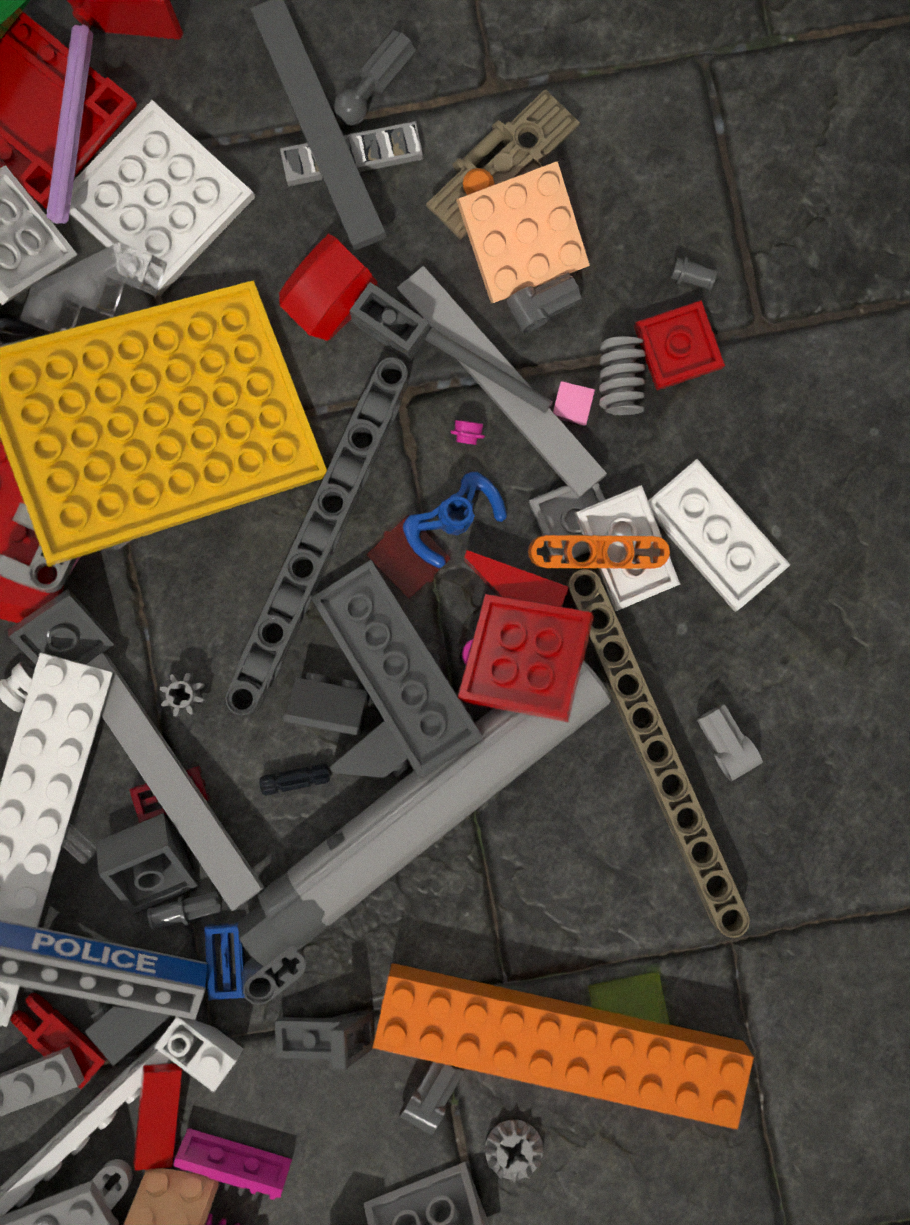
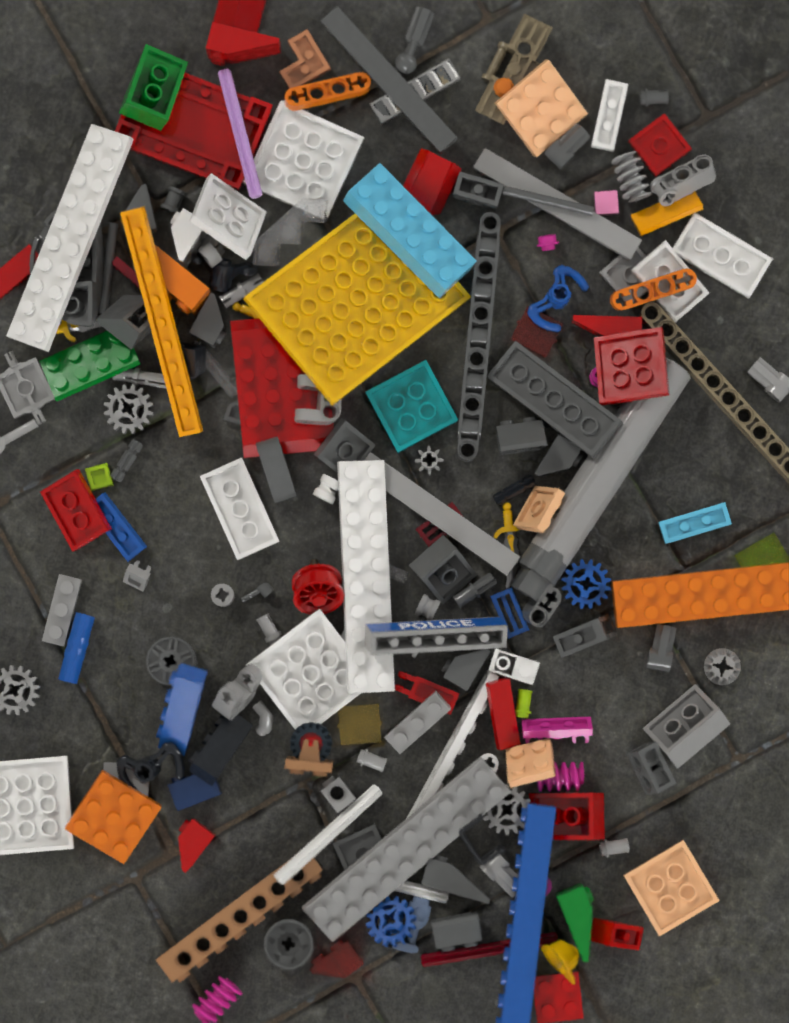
camera: 15 degrees left, 0 degrees up
(103, 913) = (427, 607): none -> light grey wheel
(186, 605) = (411, 406): none -> teal plate
(196, 1108) = (523, 703): none -> lime pin
(212, 65) = (309, 64): none -> nougat plate
(224, 103) = (326, 88): none -> orange beam
(265, 850) = (510, 538): none -> piece
(266, 344) = (409, 230): none -> medium azure brick
(316, 826) = (539, 509): none -> light nougat plate
(362, 966) = (588, 573): none -> blue gear
(545, 920) = (694, 523): none -> medium azure plate
(620, 278) = (609, 115): none -> white plate
(657, 445) = (659, 216): none -> light orange tile
(698, 406) = (684, 180): none -> light grey piece

